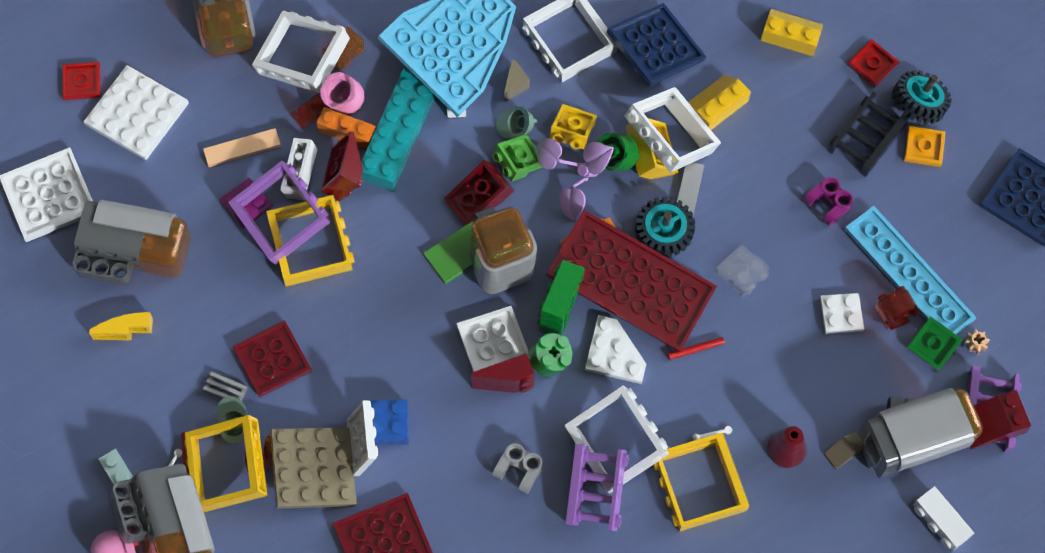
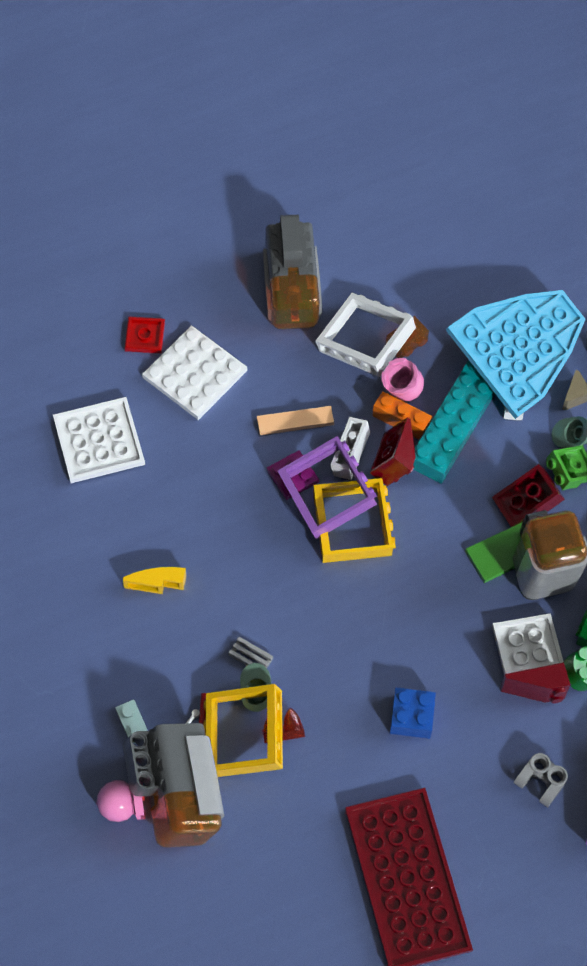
camera: 10 degrees right, 5 degrees down
(129, 239) = (174, 494): piece -> none
(272, 358) = (301, 632): dark red plate -> none
(309, 111) = (366, 393): clear red tile -> none
(312, 467) = (331, 748): dark tan plate -> none
(362, 437) = (385, 724): white plate -> none

